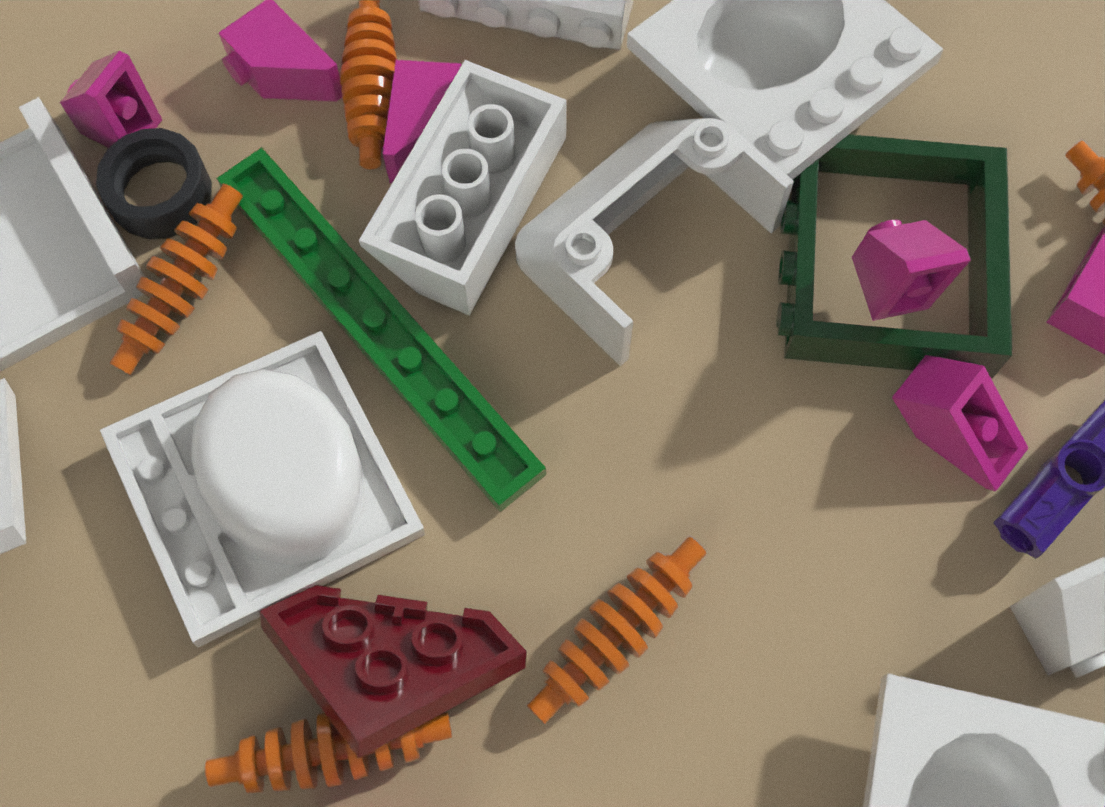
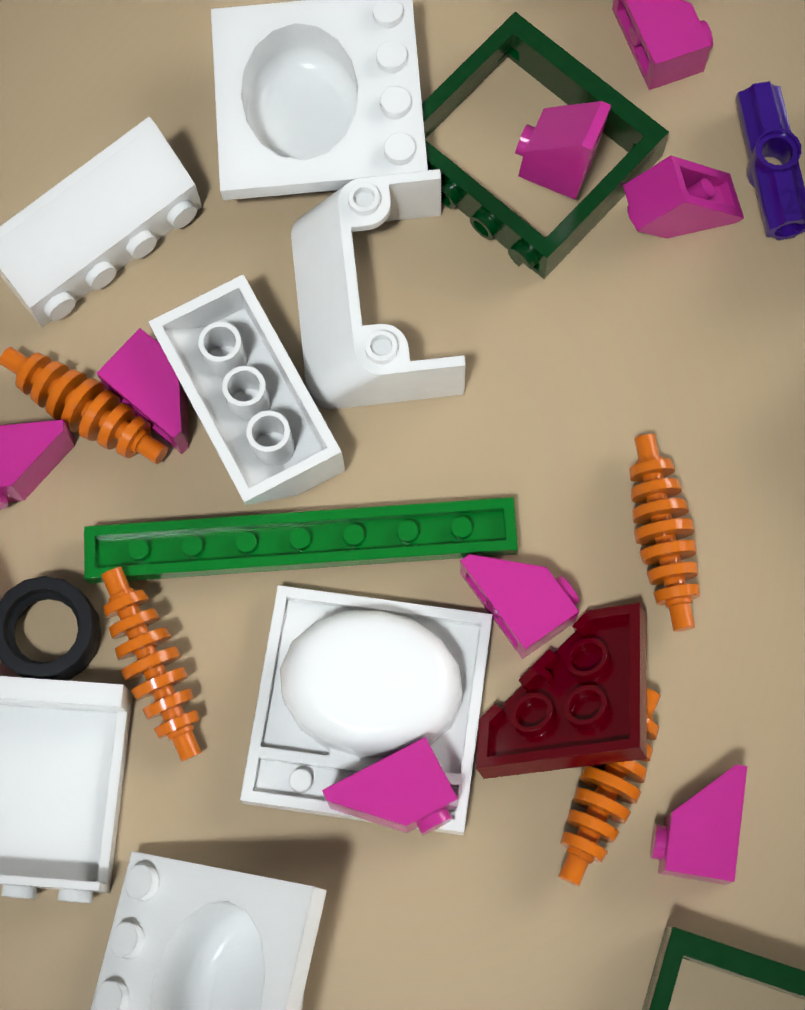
camera: 50 degrees left, 5 degrees up
(183, 553) = (398, 791): none -> dark pink slope
(452, 545) = (523, 599): none -> dark pink slope

